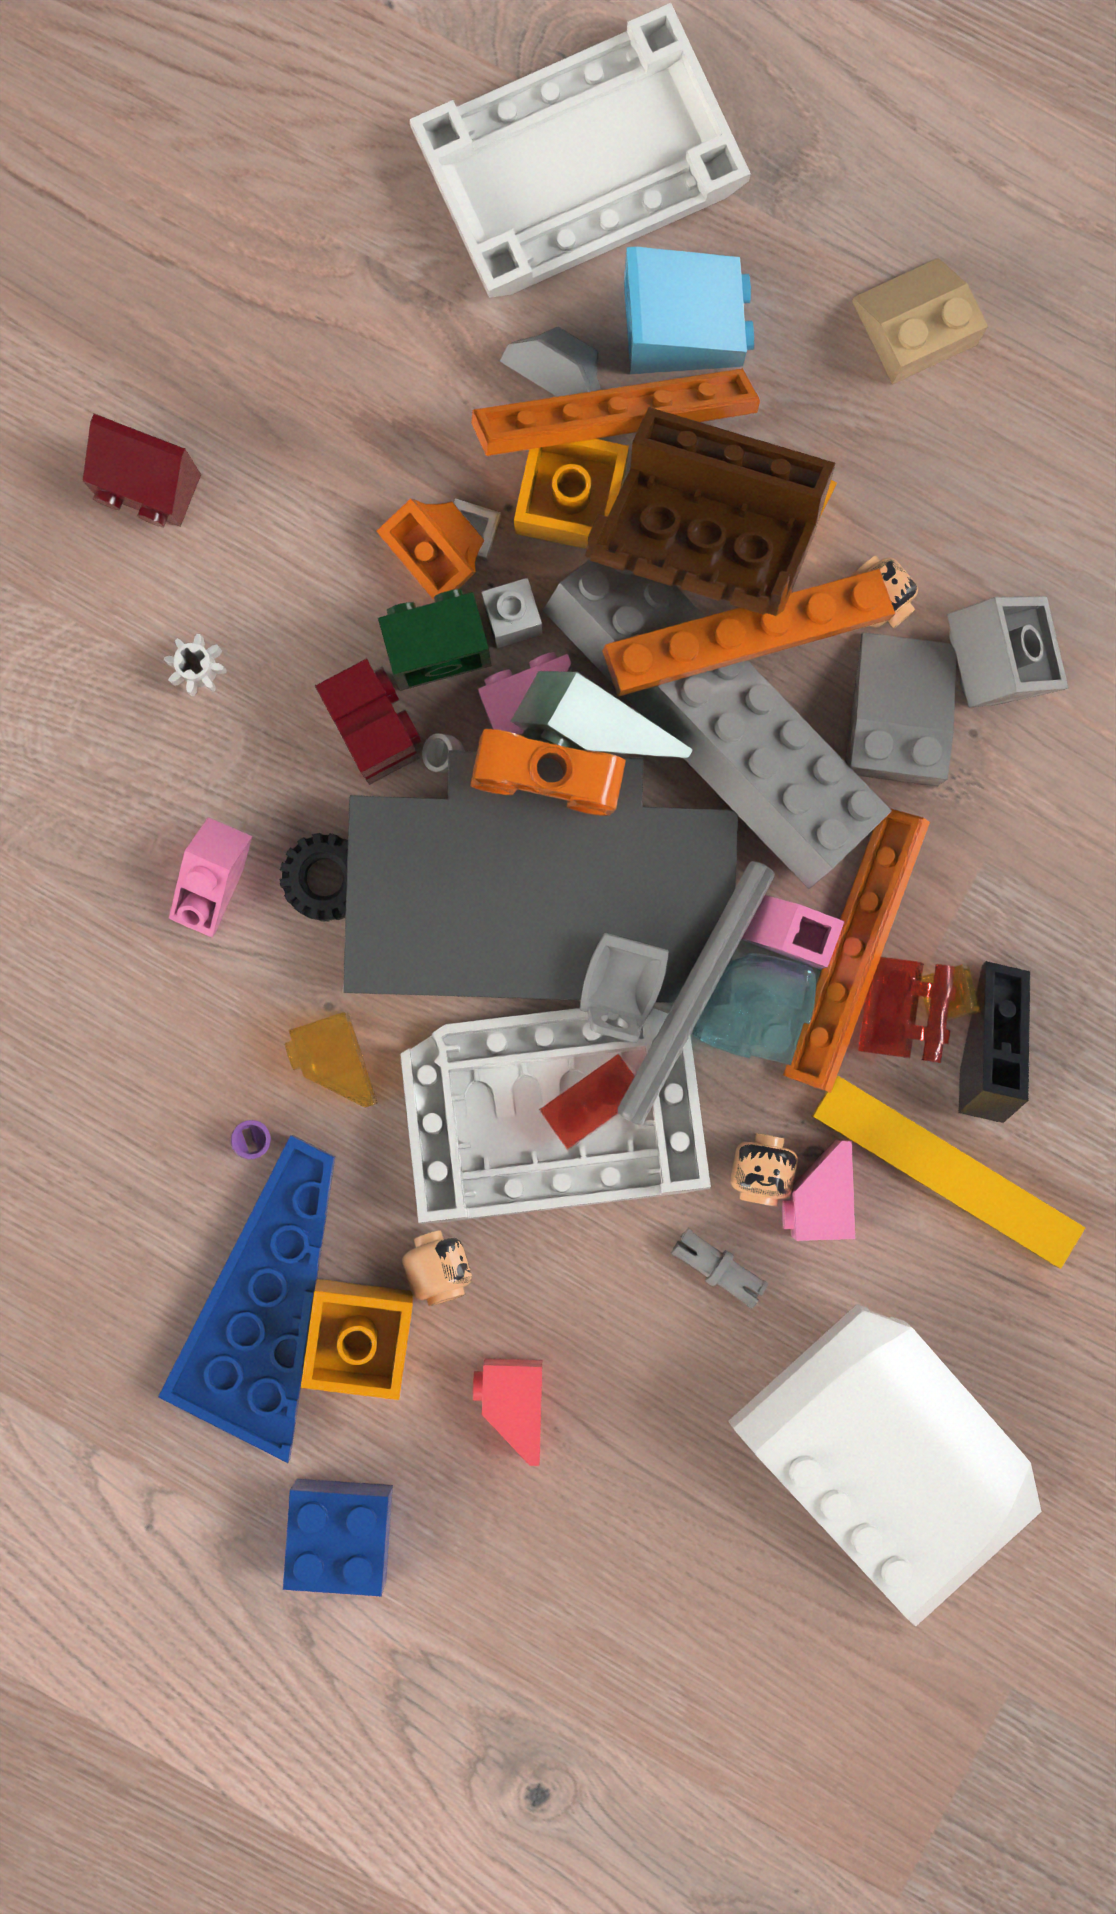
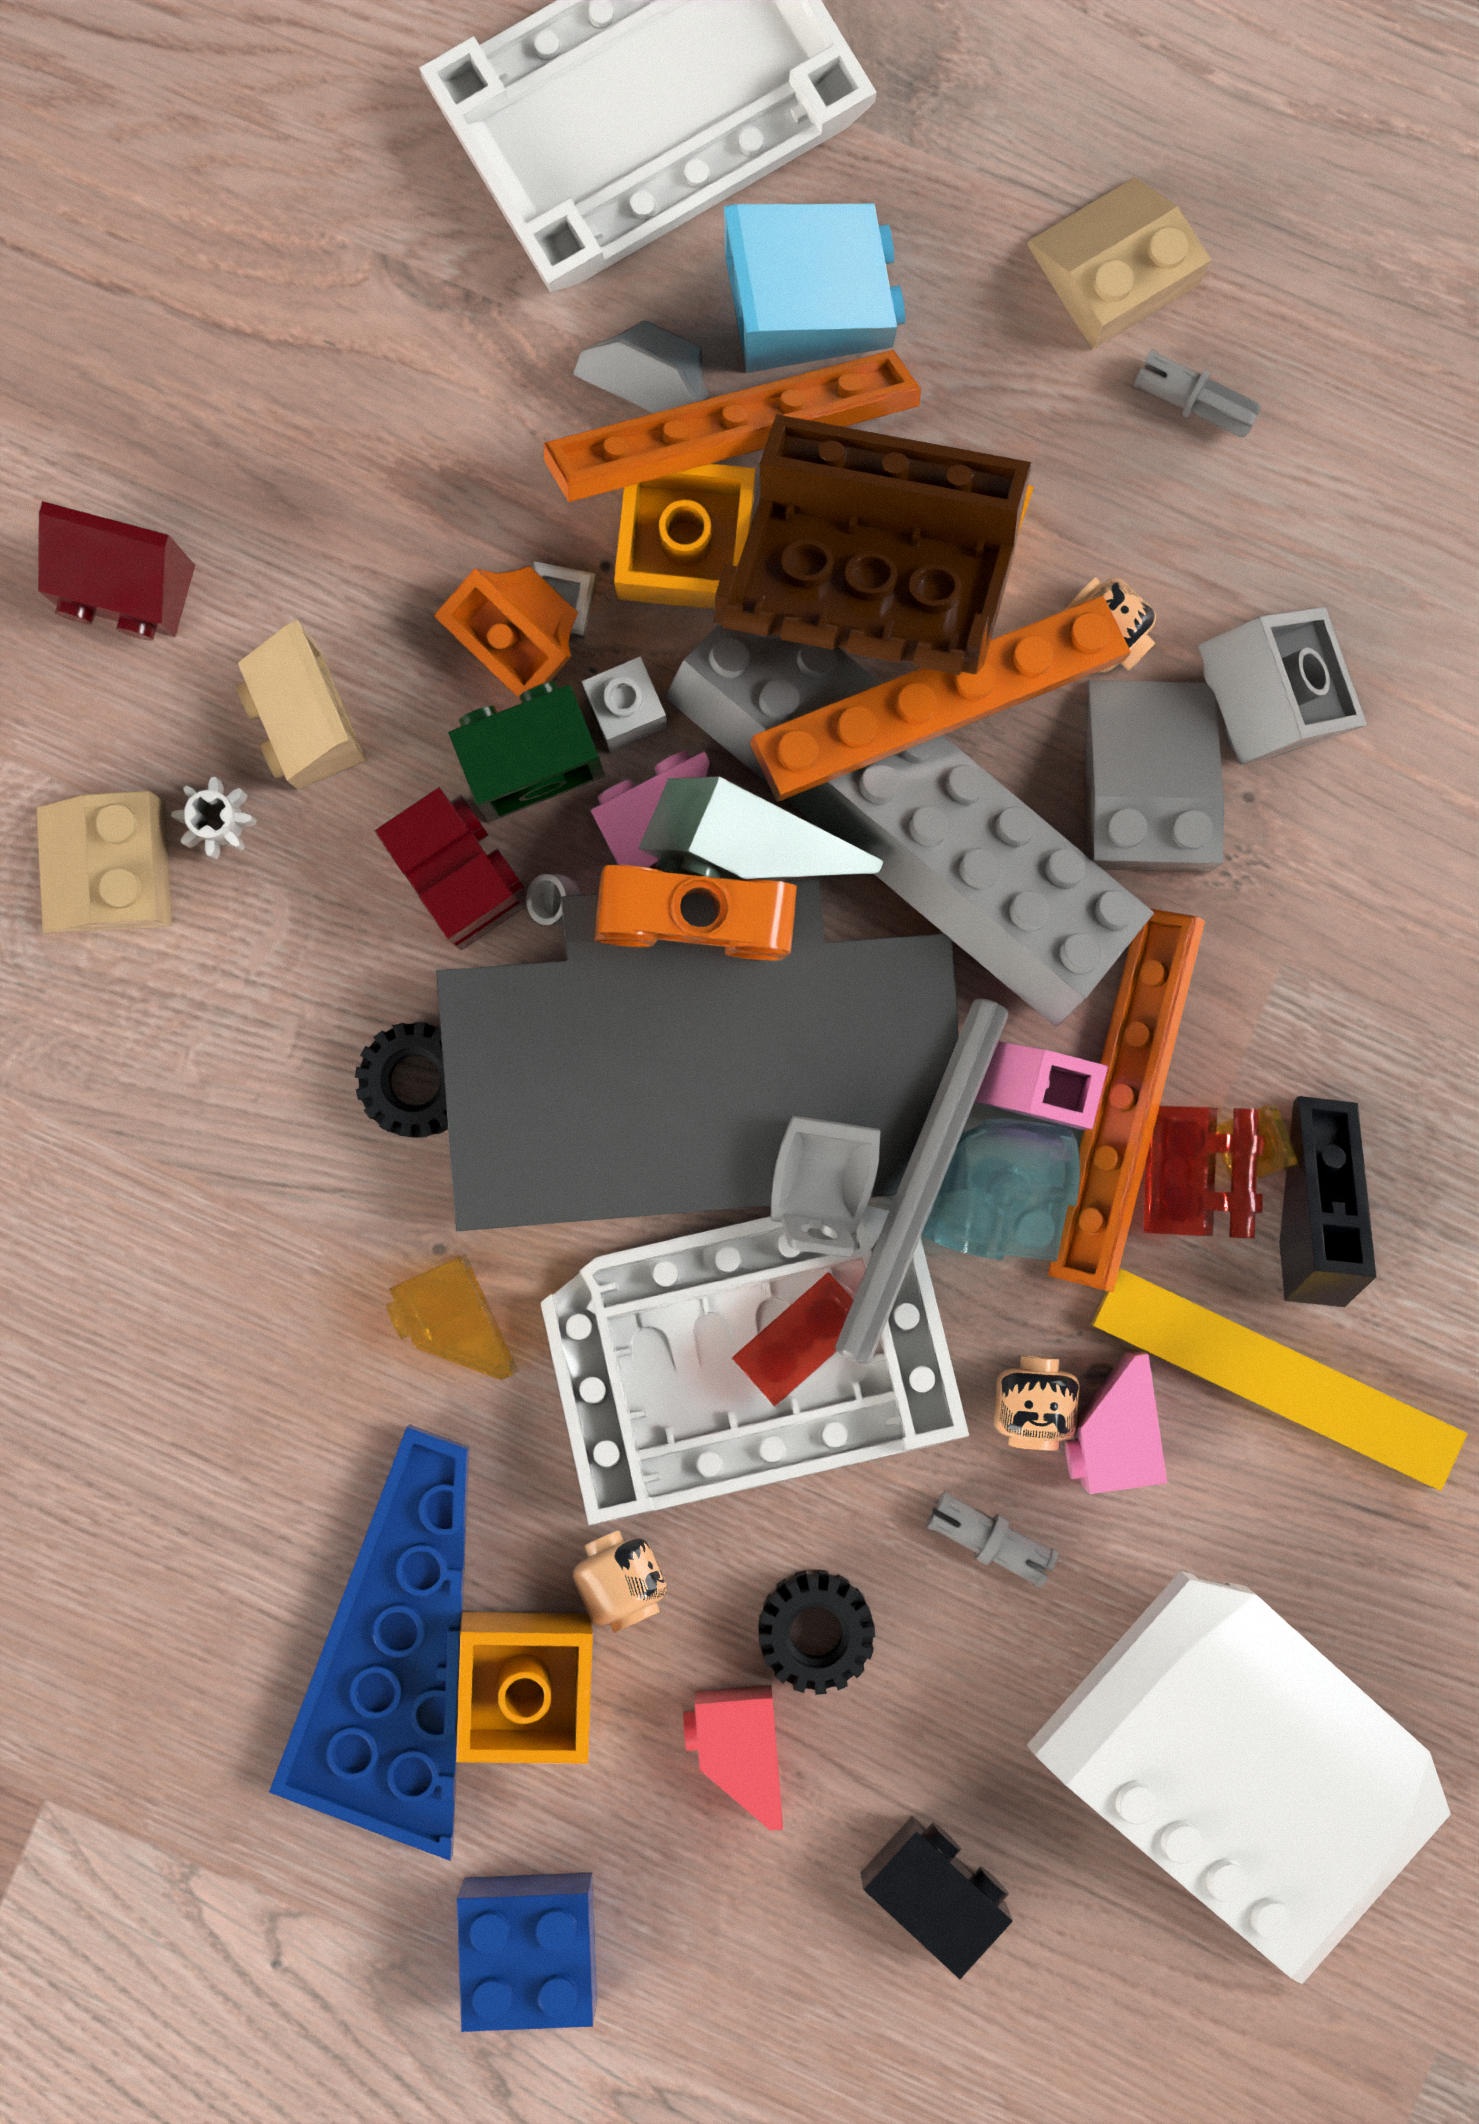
camera: 10 degrees left, 0 degrees up
(109, 690) = (104, 863): none -> tan slope
(209, 876) = (262, 1095): bright pink slope -> none
(260, 1137) = (366, 1430): medium lavender hinge -> none
(267, 589) = (299, 708): none -> tan slope
(580, 1352) = (823, 1670): none -> black tyre
(649, 1529) = (937, 1895): none -> black brick
(967, 426) = (1197, 394): none -> light grey axle

